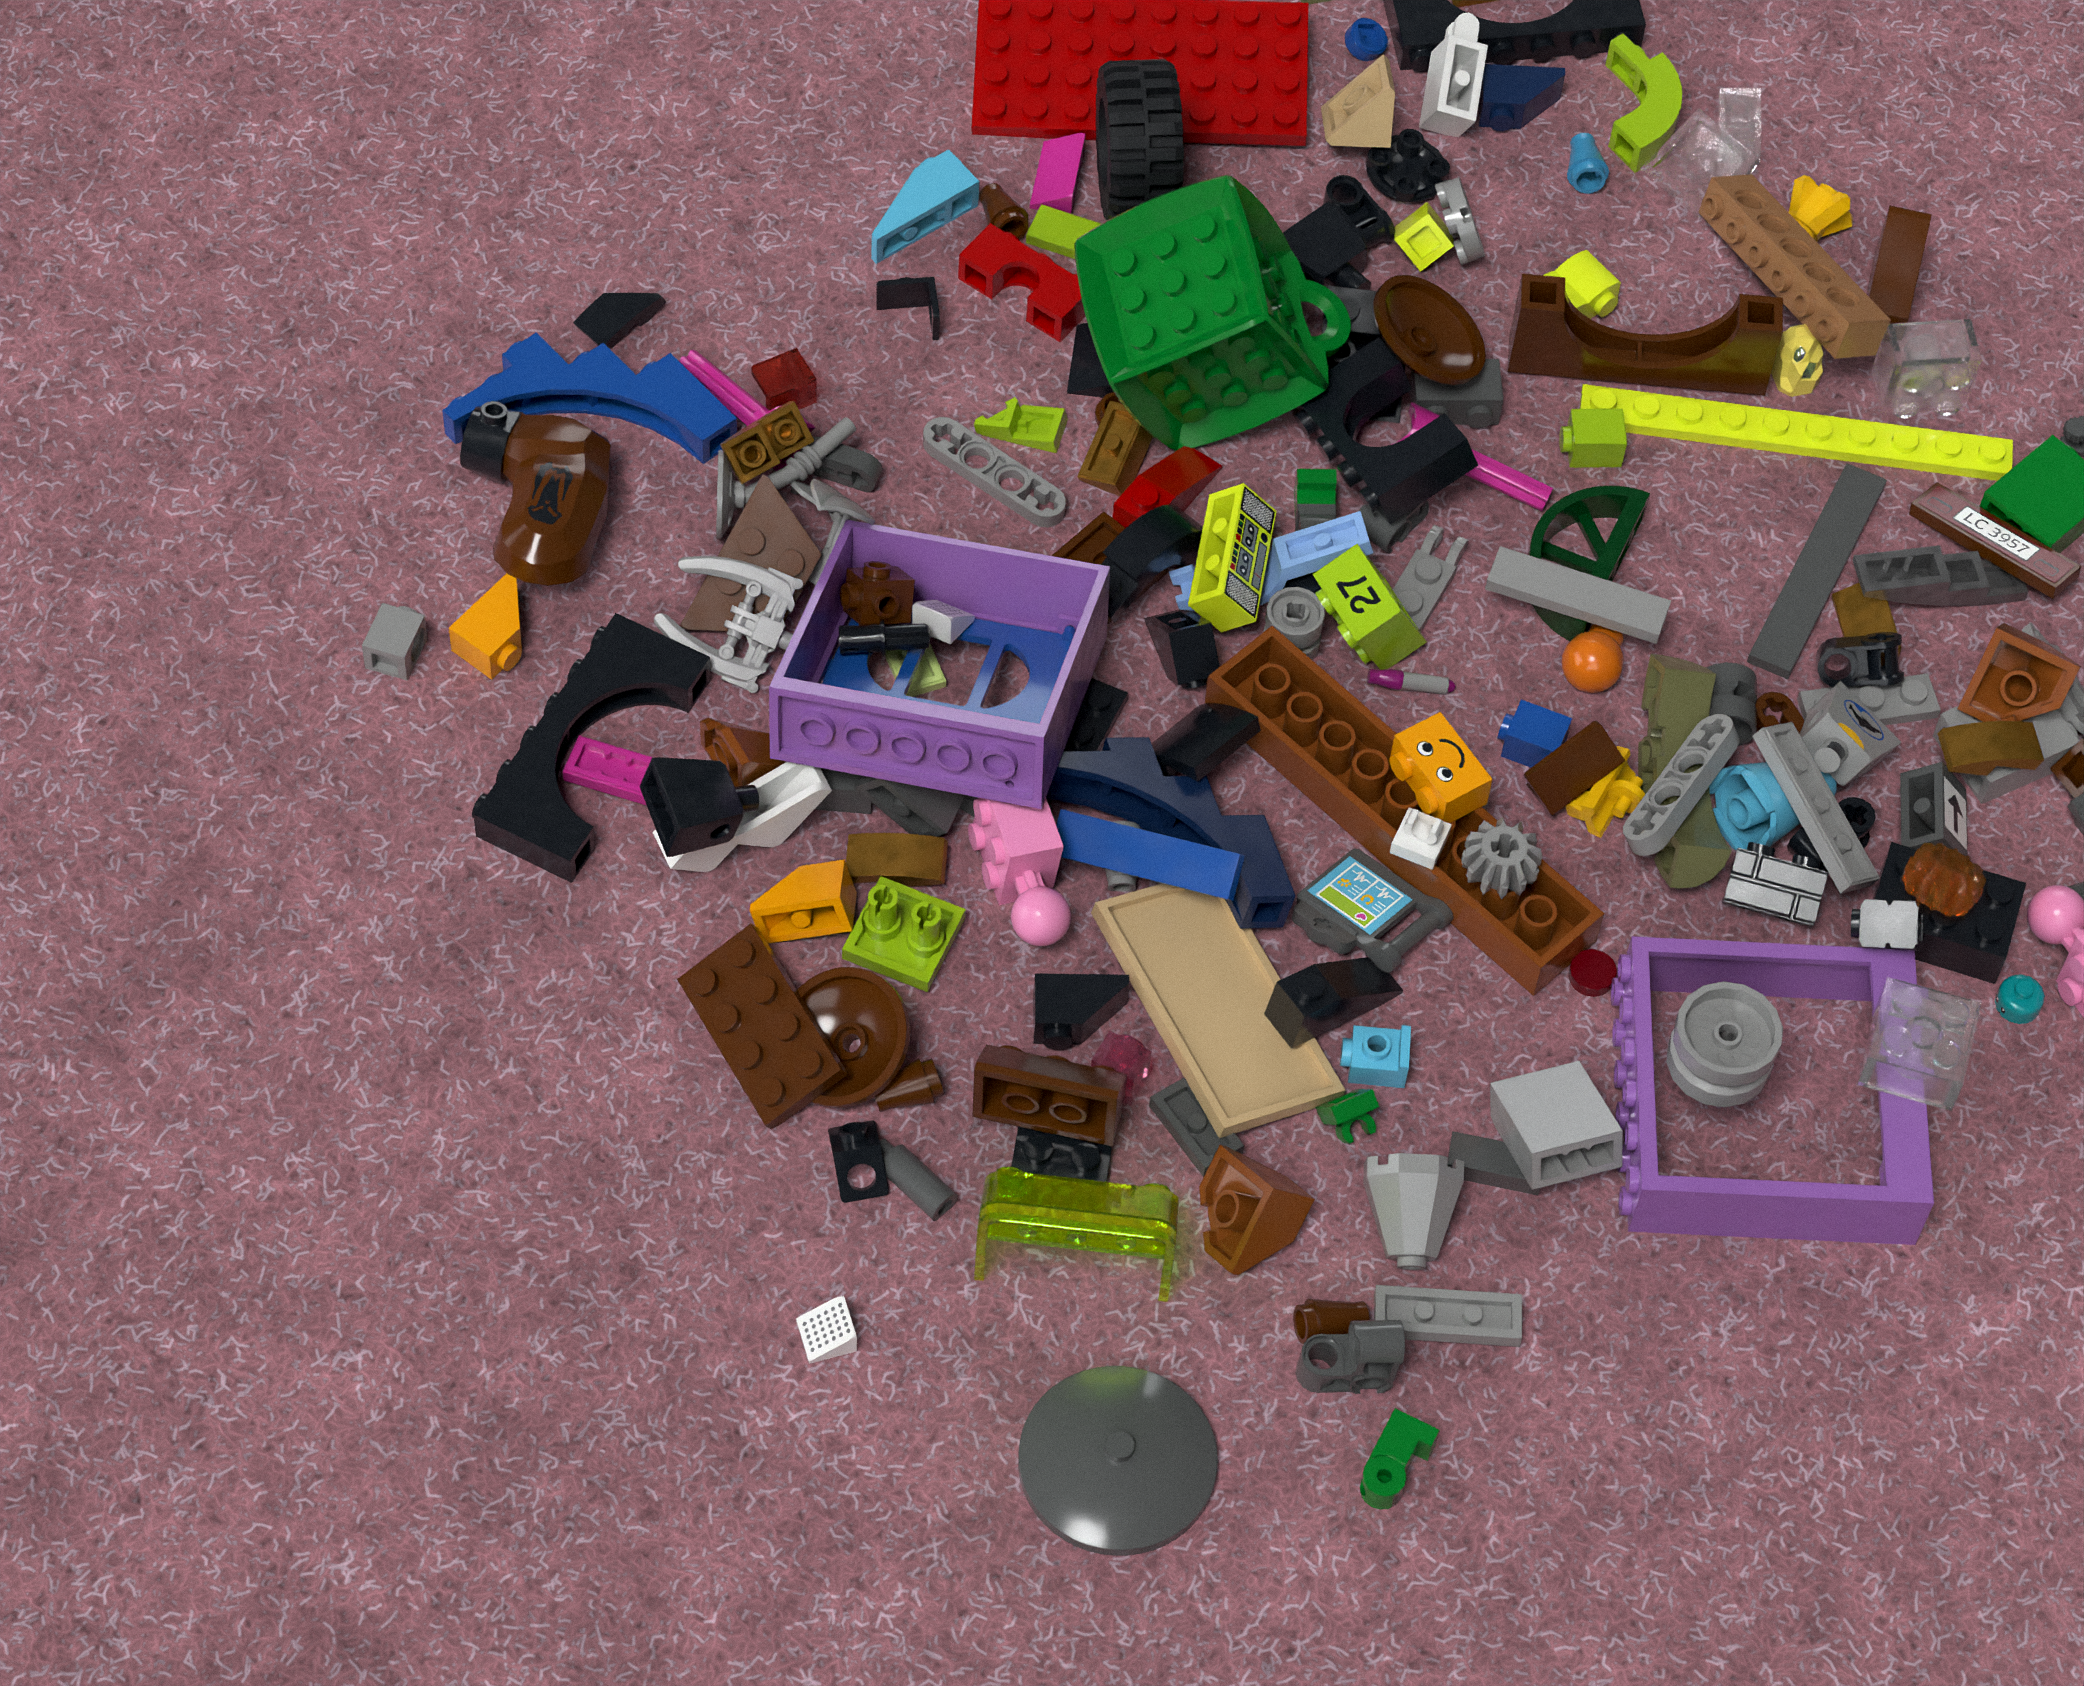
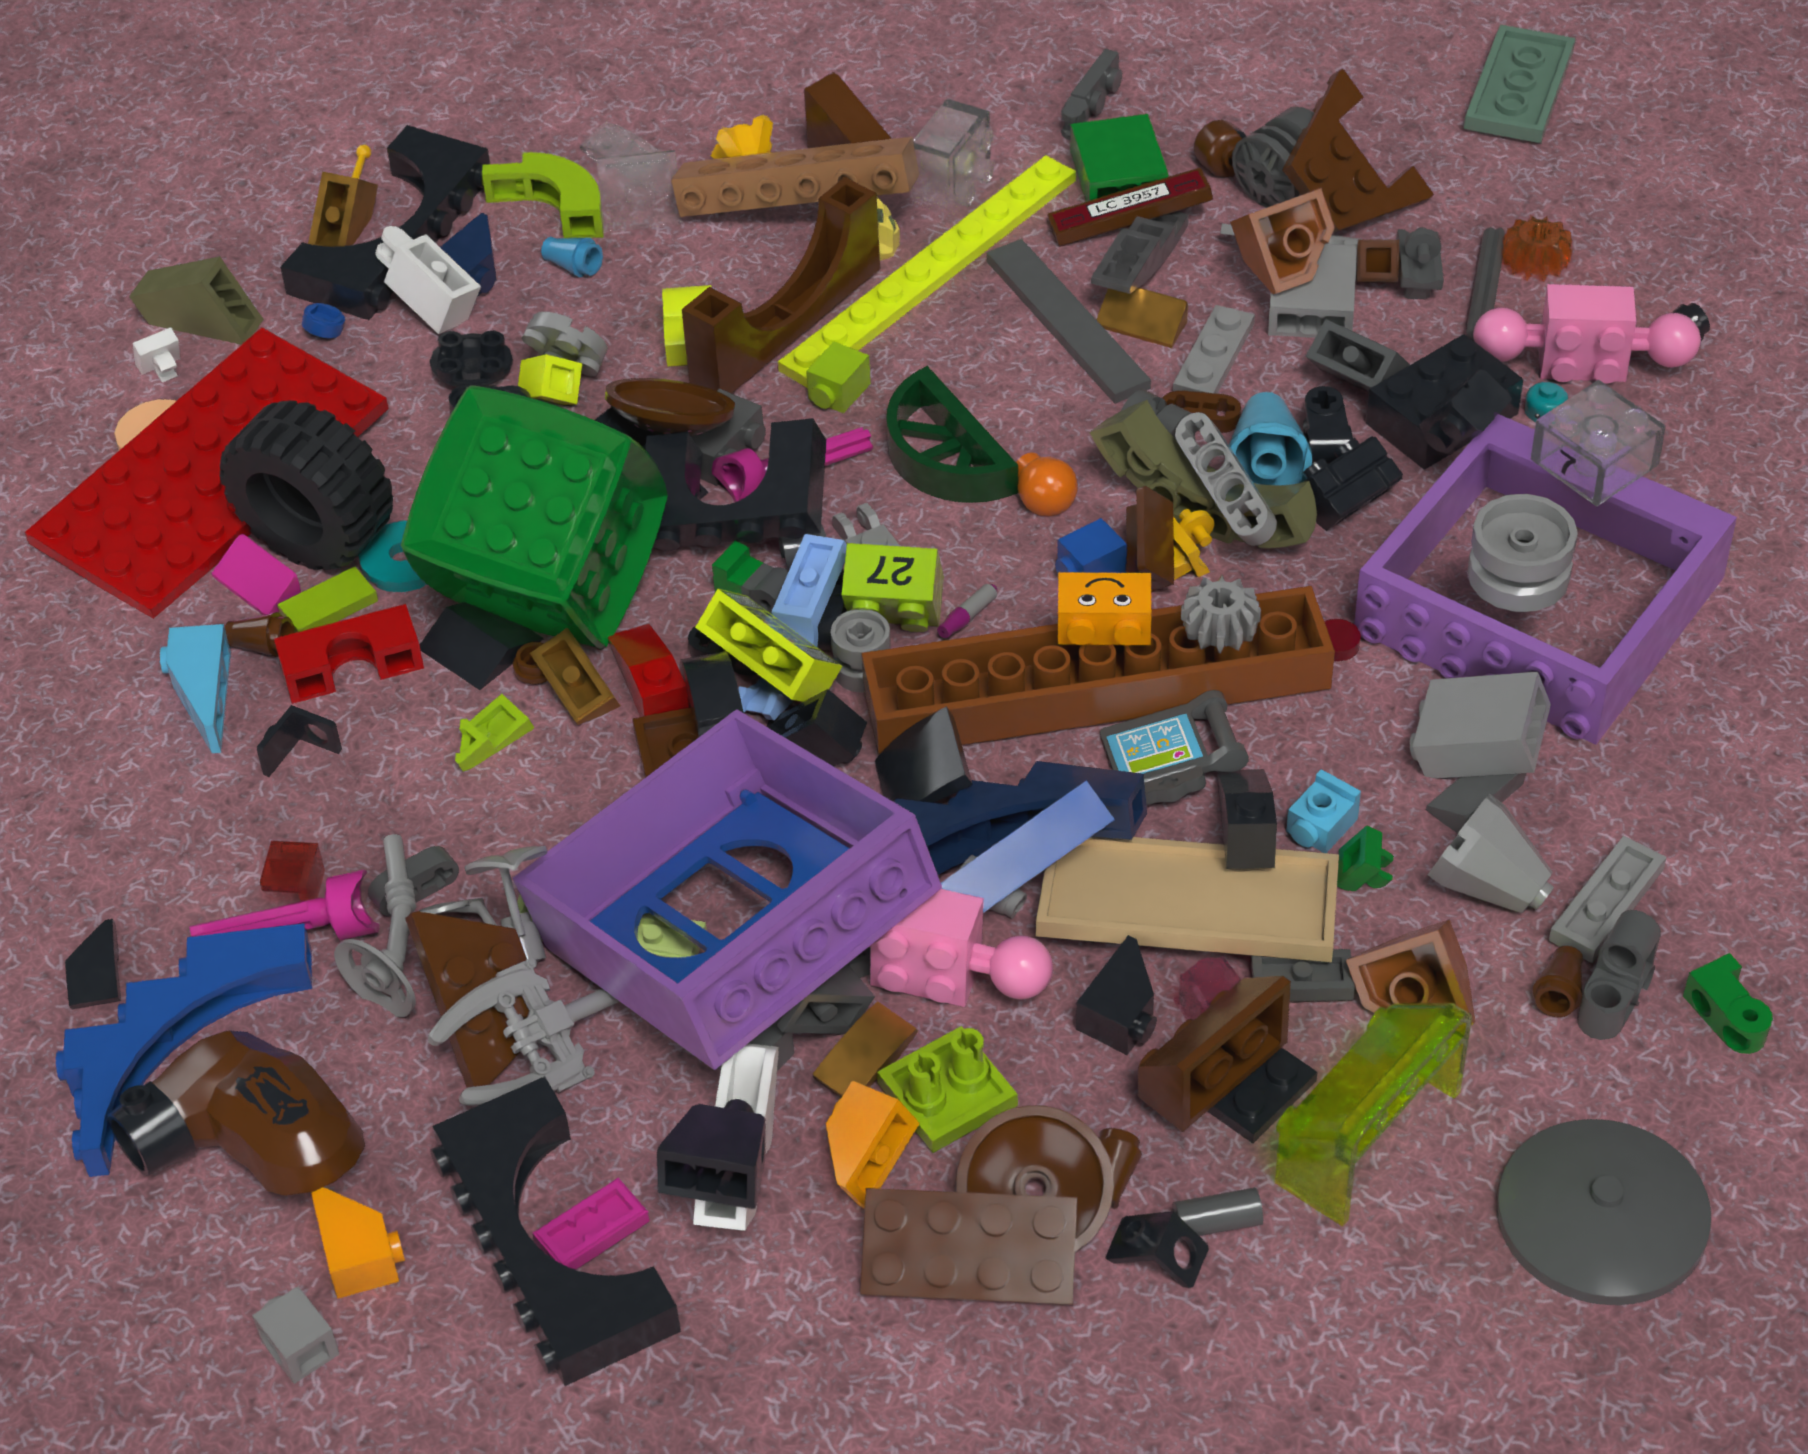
camera: 50 degrees left, 10 degrees down
(739, 748) = (658, 1107): dark orange slope -> none
(766, 442) = (363, 903): pearl gold slope -> none
(827, 1331) = (1328, 1366): white slope -> none
(877, 594) = (605, 899): reddish brown brick -> none
(883, 638) = (650, 922): black axle -> none
(943, 619) = (657, 881): white slope -> none
(999, 468) = (516, 772): light grey beam -> none
(1363, 109) = (399, 344): tan slope -> none
(1420, 838) = (1155, 659): white tile -> none
(1578, 594) = (991, 451): light grey tile -> none
(1816, 807) = (1311, 408): light grey tile -> none
(1845, 736) = (1257, 367): light grey torso -> none
(1864, 659) = (1181, 326): black piece -> none
(1943, 879) = (1445, 361): clear orange gear -> none
(1984, 745) = (1330, 288): pearl gold slope -> none

